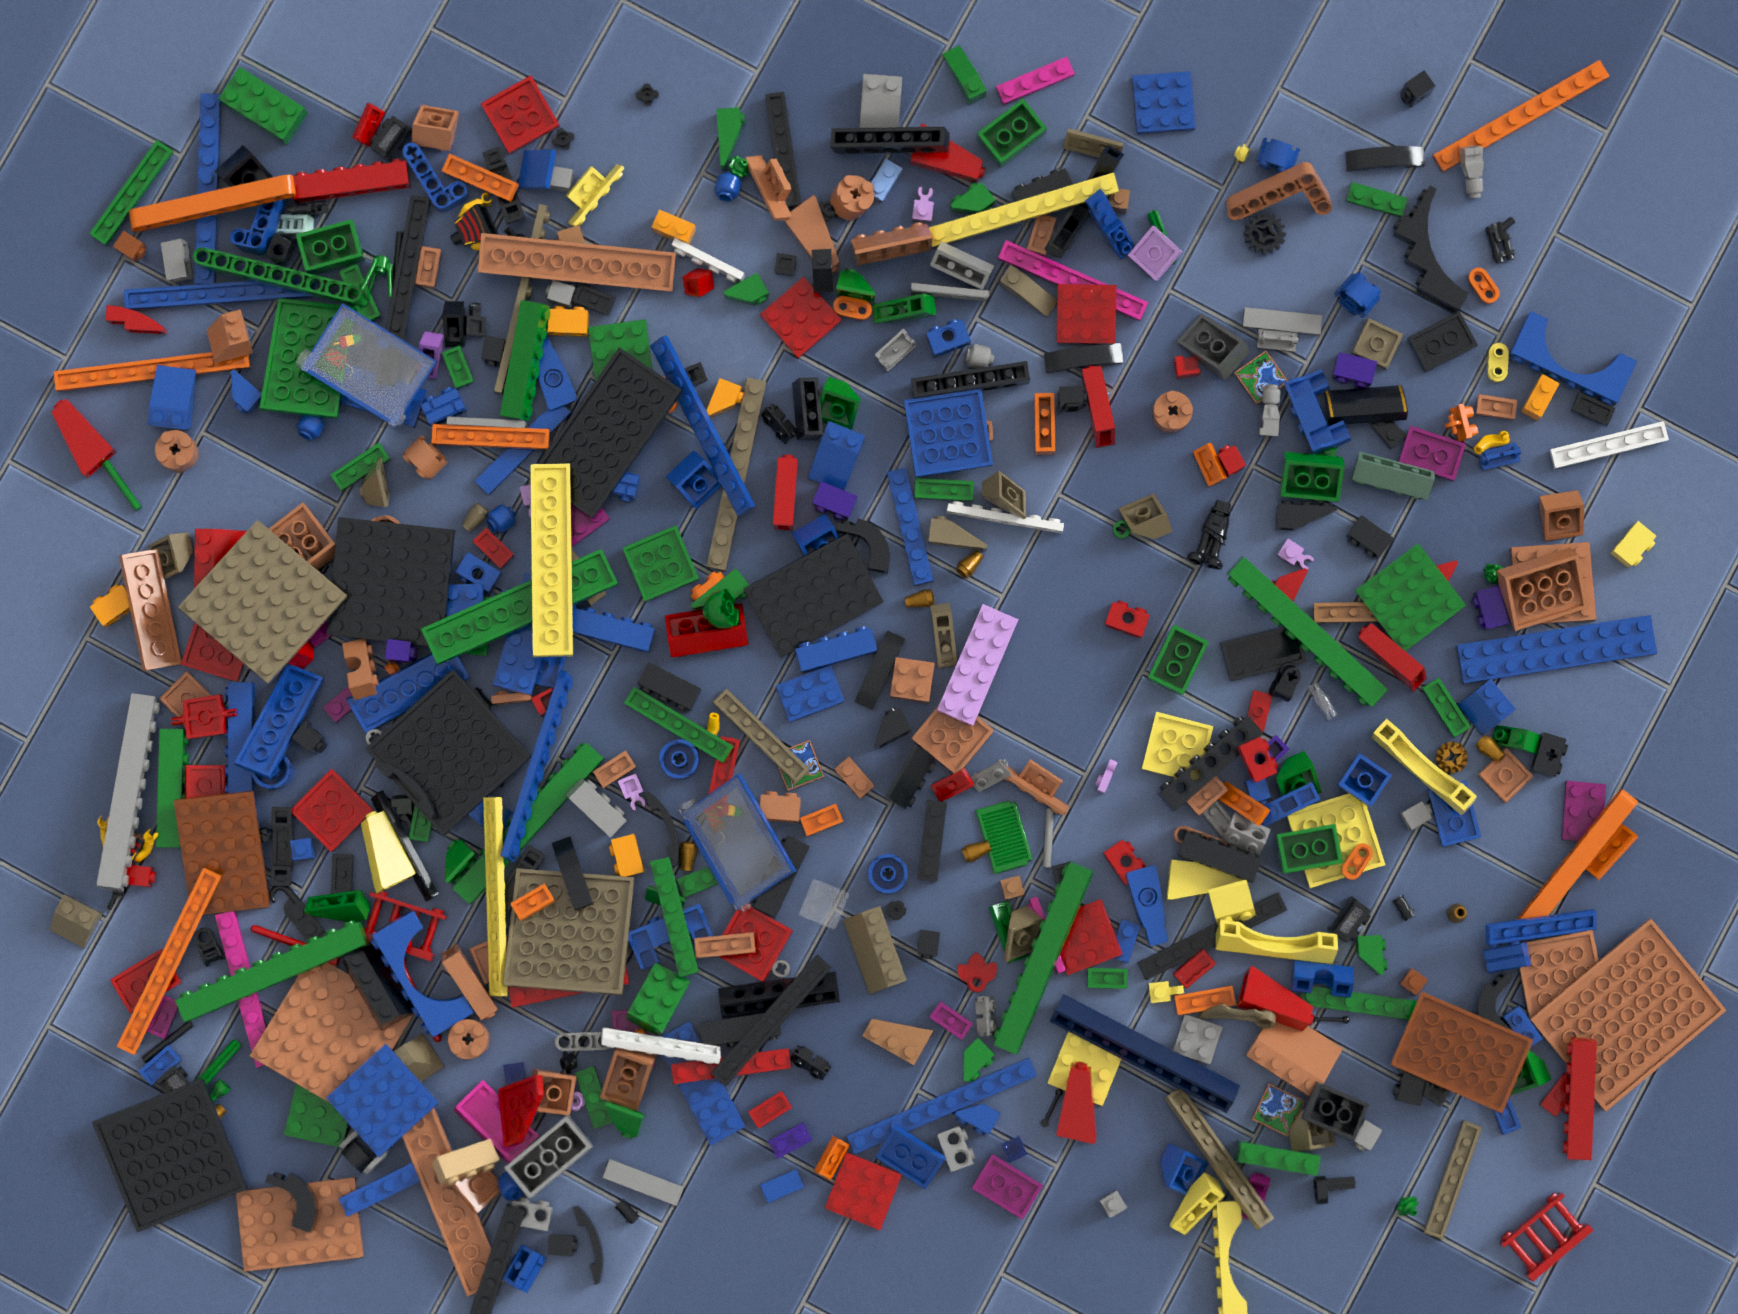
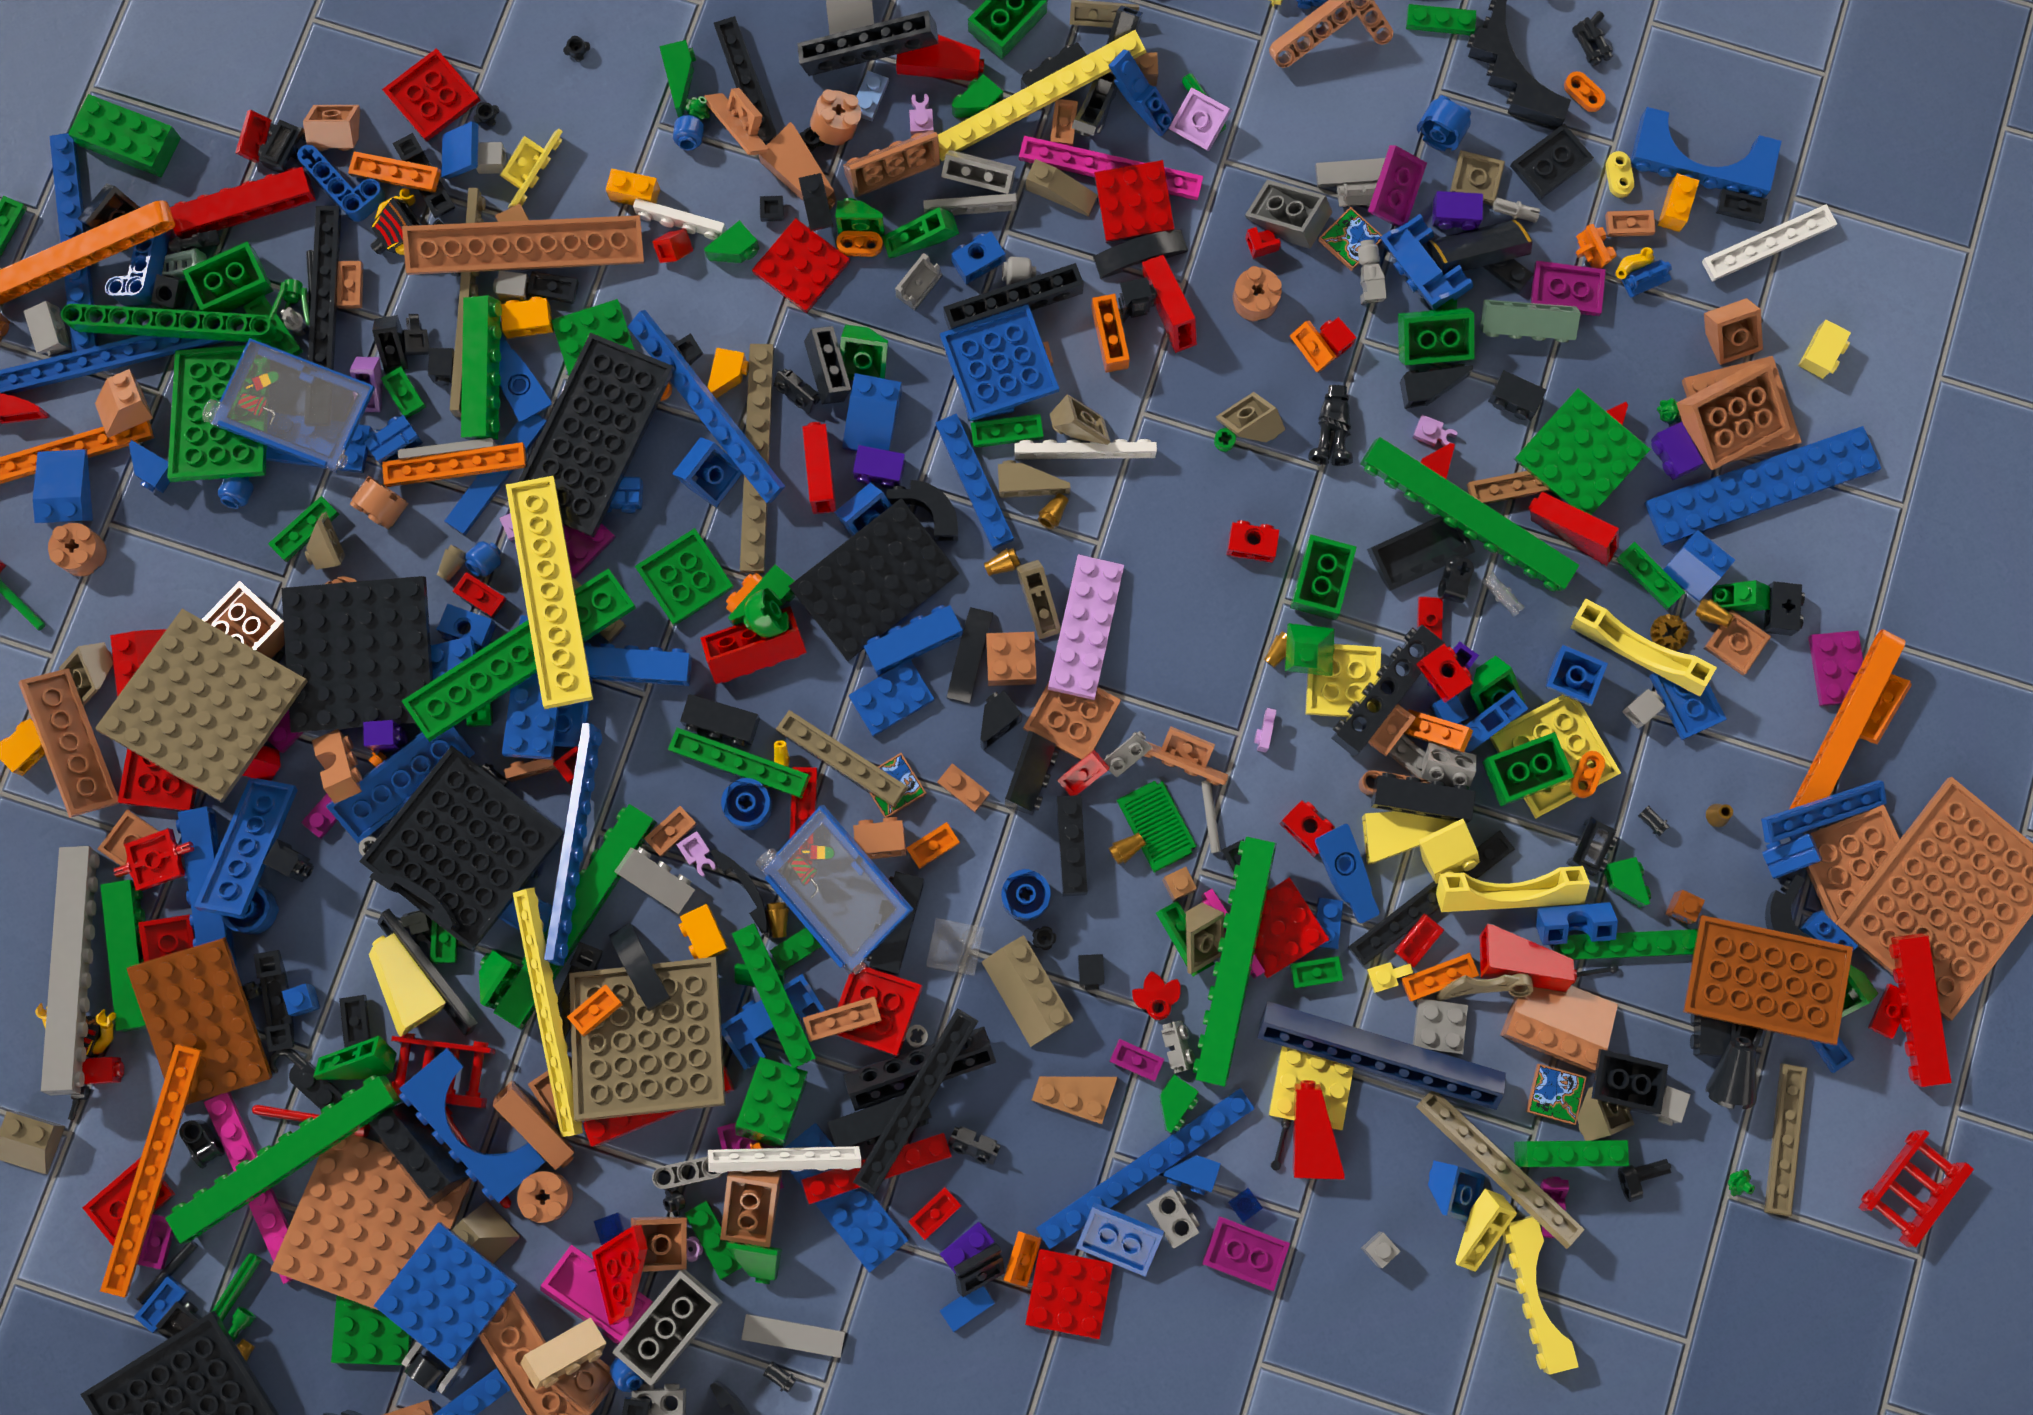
camera: 15 degrees left, 5 degrees down
(331, 810) = (330, 945): red plate -> none
(379, 292) = (294, 321): none -> light grey axle
(796, 1159) = (979, 1270): none -> black plate
(1131, 712) = (1277, 650): none -> pearl gold cone
(1154, 718) = (1309, 649): none -> green slope
(1258, 230) = (1314, 85): black gear -> none
(1306, 342) = (1397, 186): none -> magenta plate
(1403, 378) = (1516, 210): none -> light grey axle
(1420, 1123) = (1735, 1076): none -> black cone

